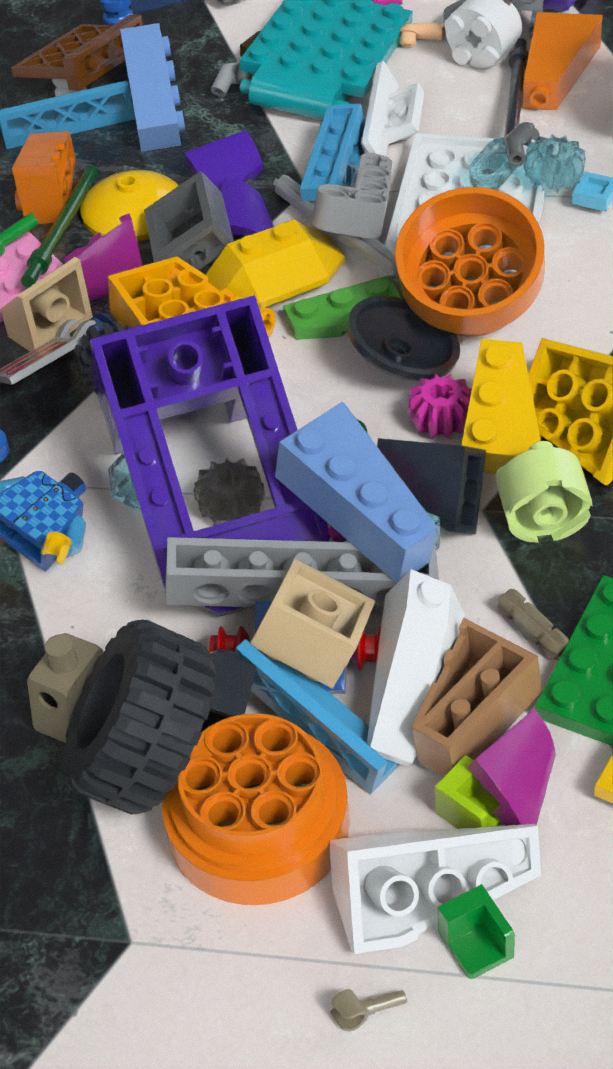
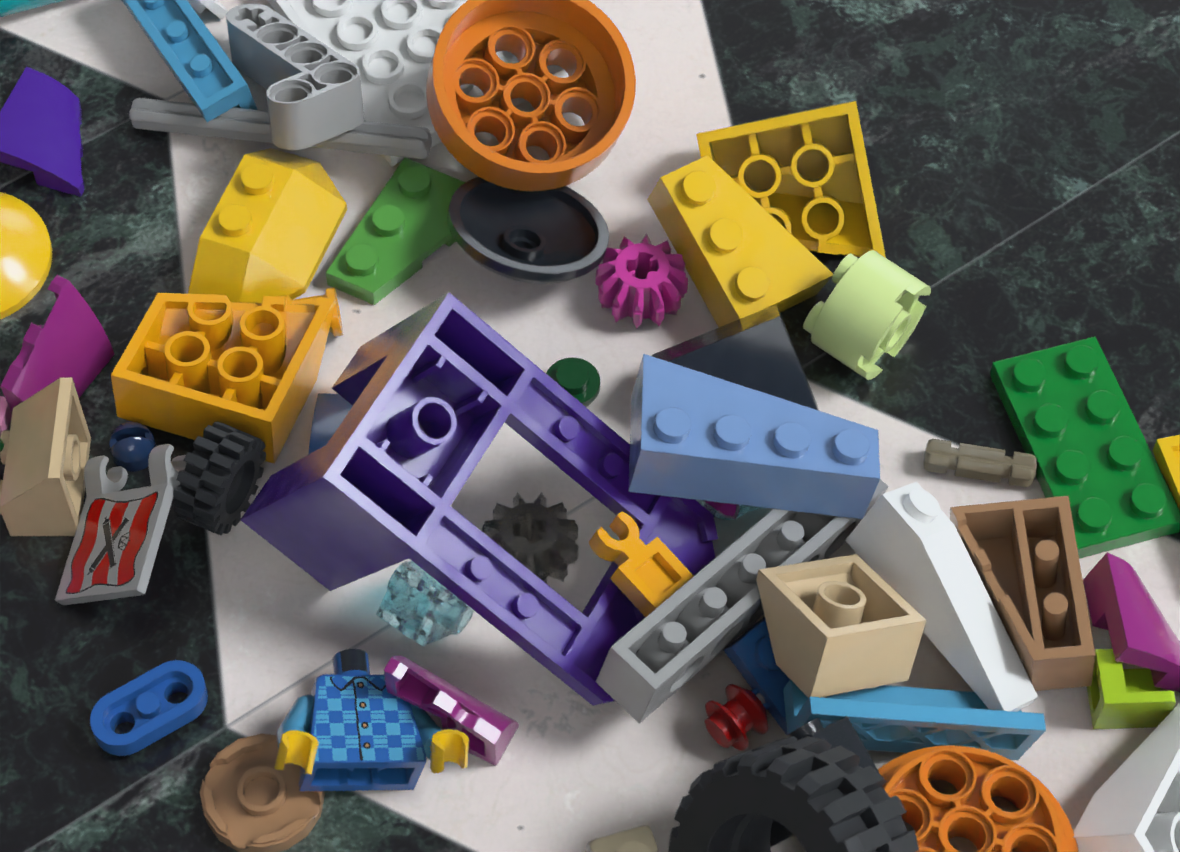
camera: 50 degrees left, 10 degrees up
(93, 534) = (486, 727): none -> magenta slope
(171, 211) = (155, 265): dark grey window -> none
(244, 208) = (141, 185): dark purple slope -> none
(244, 520) = (645, 572): none -> light orange plate

